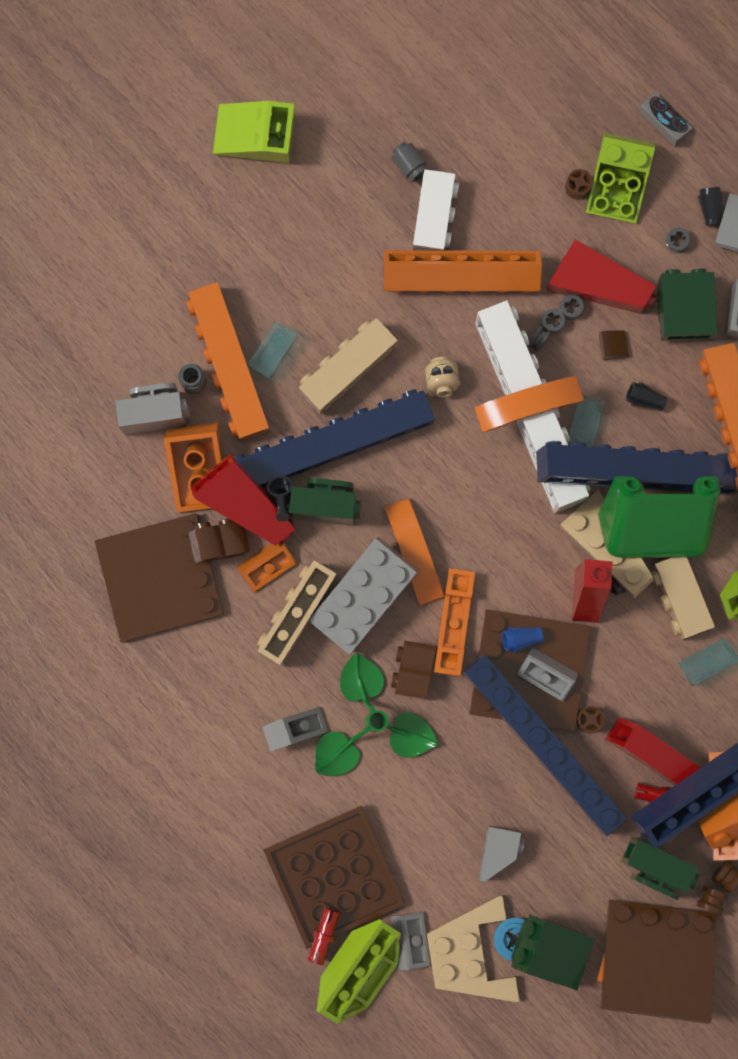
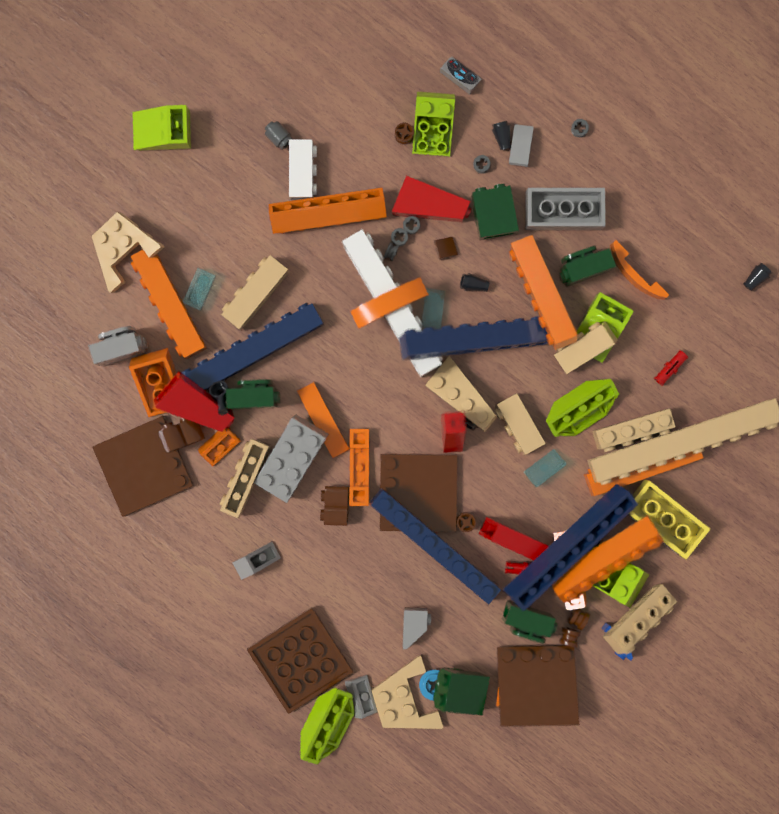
camera: 10 degrees left, 5 degrees up
(171, 270) = (115, 242): none -> tan wing
(188, 372) = (138, 319): dark grey brick -> none
(324, 936) = (298, 704): red pin -> none
(409, 735) = (339, 550): green plant -> none
(442, 376) = (325, 290): tan head -> none
(519, 638) = (407, 472): blue cone -> none
(547, 674) = (431, 494): light grey slope -> none
(658, 523) = (494, 377): green windscreen -> none

